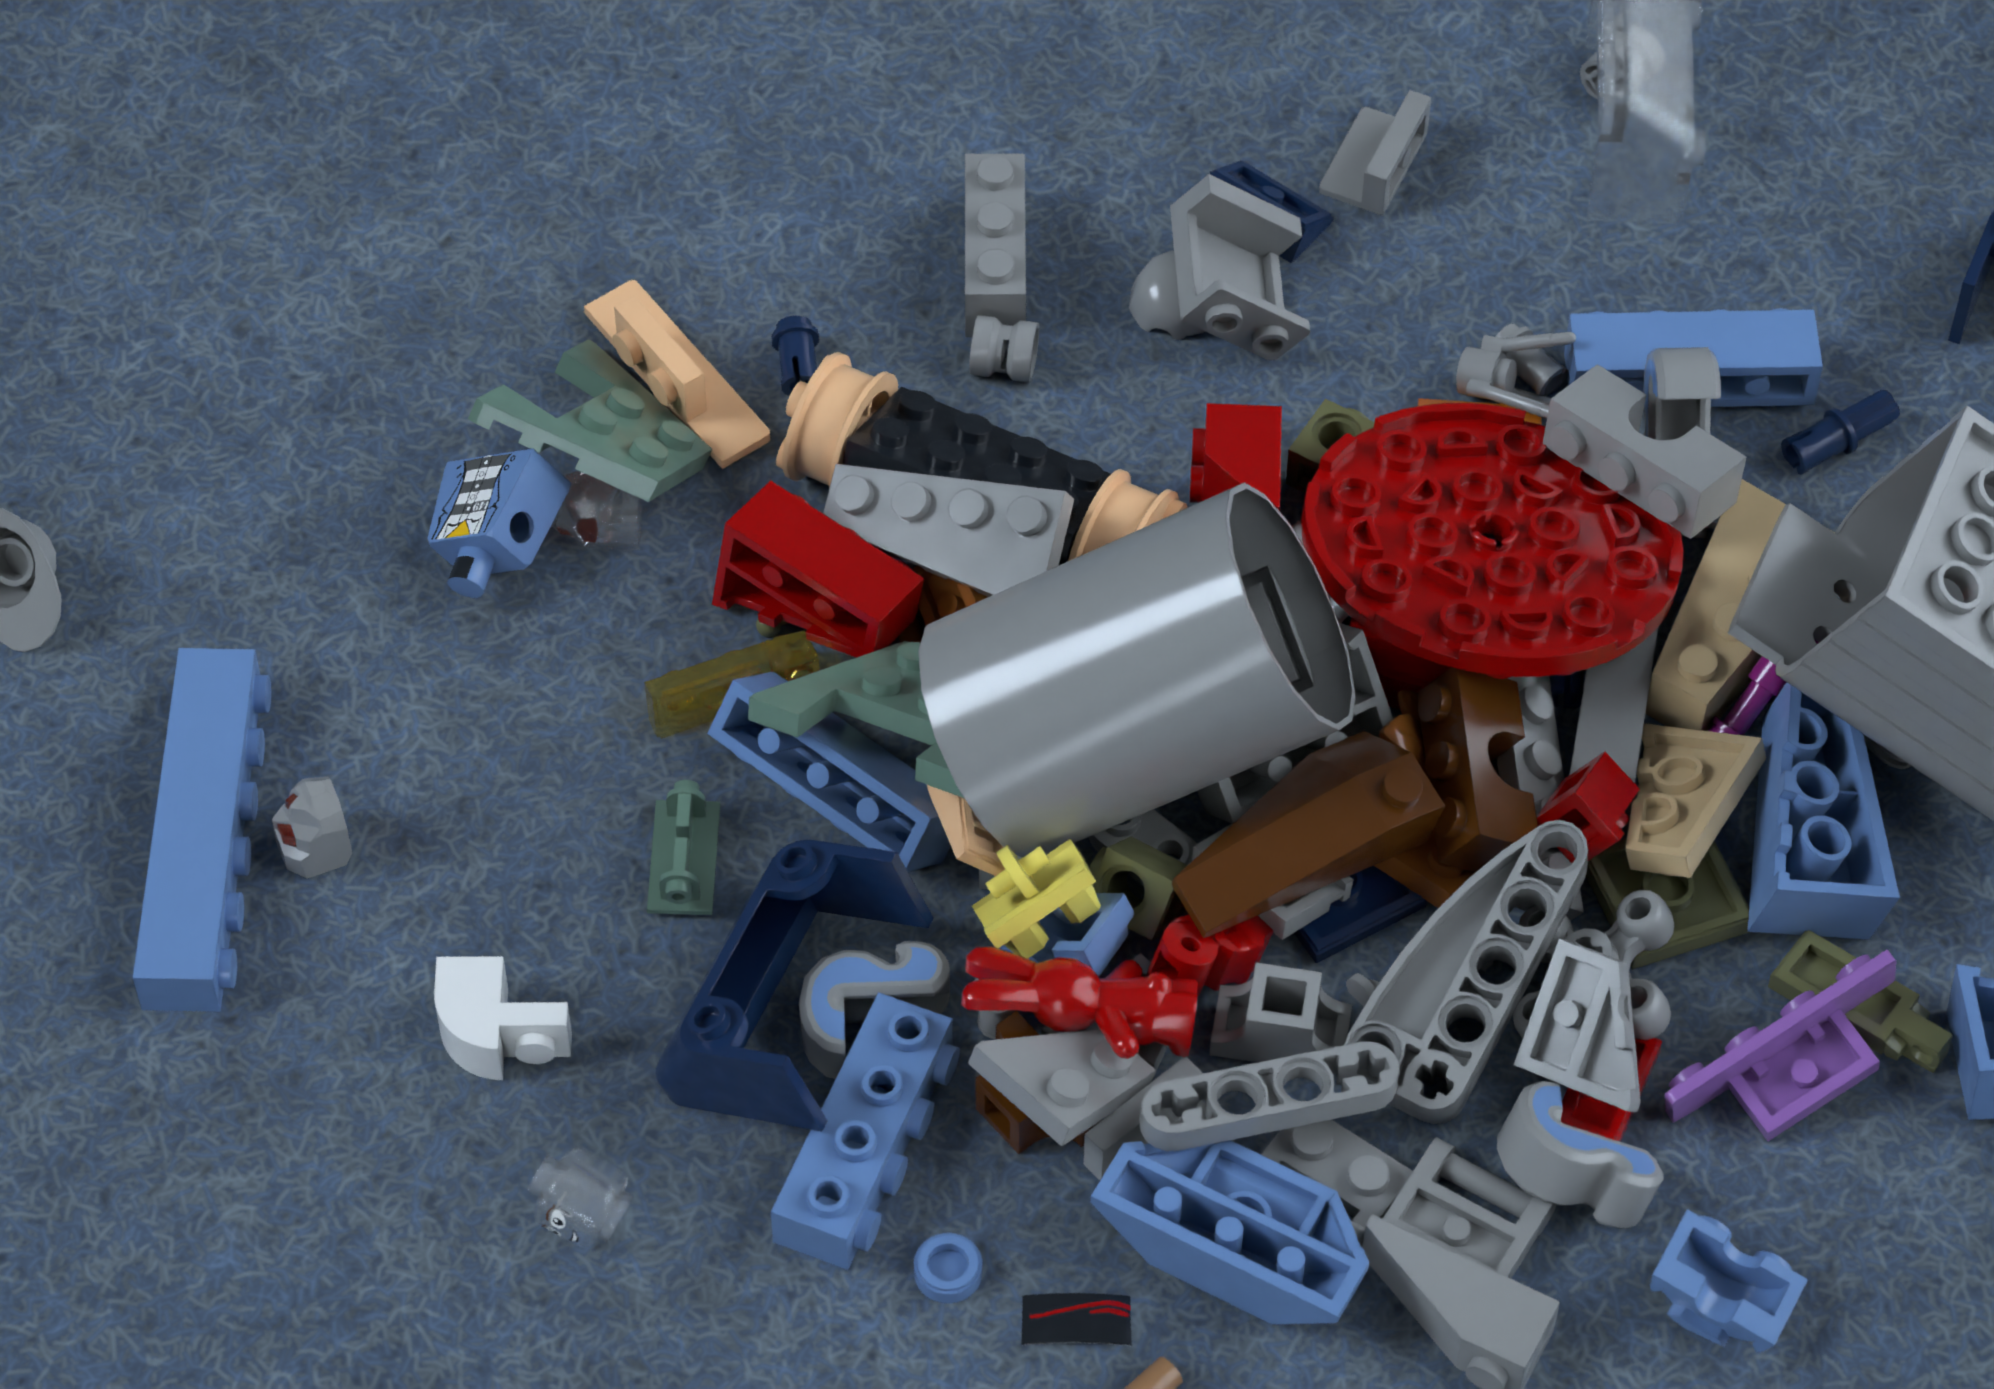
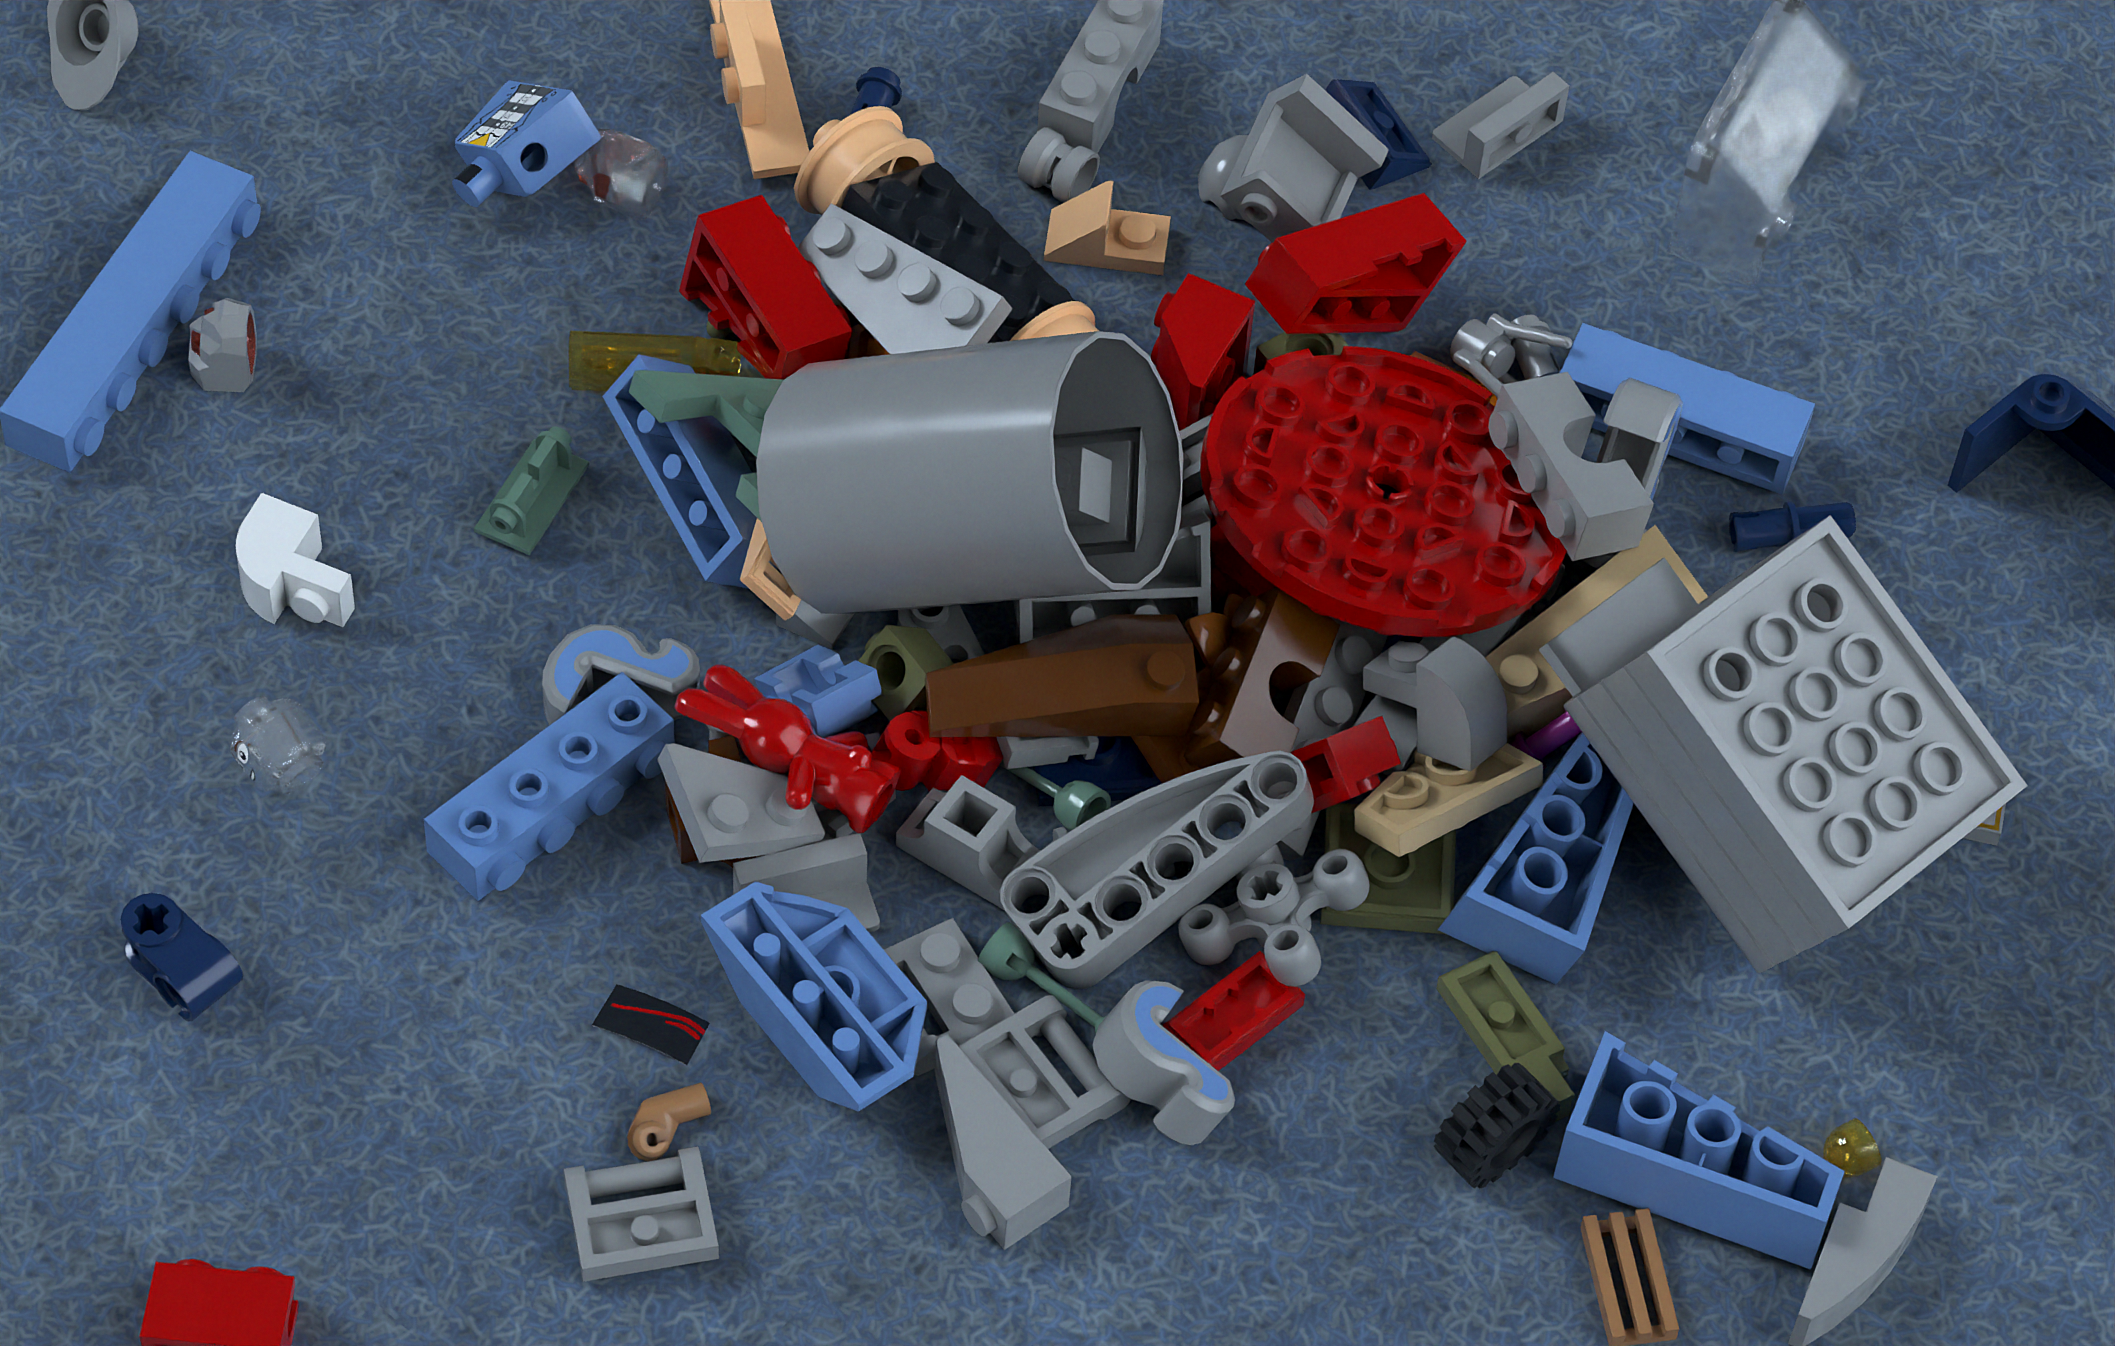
camera: 20 degrees right, 0 degrees up
(617, 435) = (665, 118): sand green wing -> none
(706, 1055) = (527, 605): dark blue windscreen -> none
(948, 1268) = (562, 933): medium blue tile -> none
(1033, 890) = (794, 631): light yellow hips -> none
(1075, 399) = (1095, 235): none -> light nougat slope
(1273, 1107) = (905, 903): light grey beam -> none
(1346, 340) = (1357, 269): none -> red wedge
(1361, 946) = (1074, 802): none -> sand green hinge
(1384, 1122) = (1012, 957): none -> sand green hinge
(1584, 1027) = (1227, 948): light grey wing -> none
(1655, 703) = (1454, 694): none -> light grey brick
(1721, 1289) = (1231, 1225): medium blue cylinder -> none
(1796, 1060) = (1414, 1056): medium lavender bracket -> none
(1905, 1092) = (1496, 1125): none -> black tyre

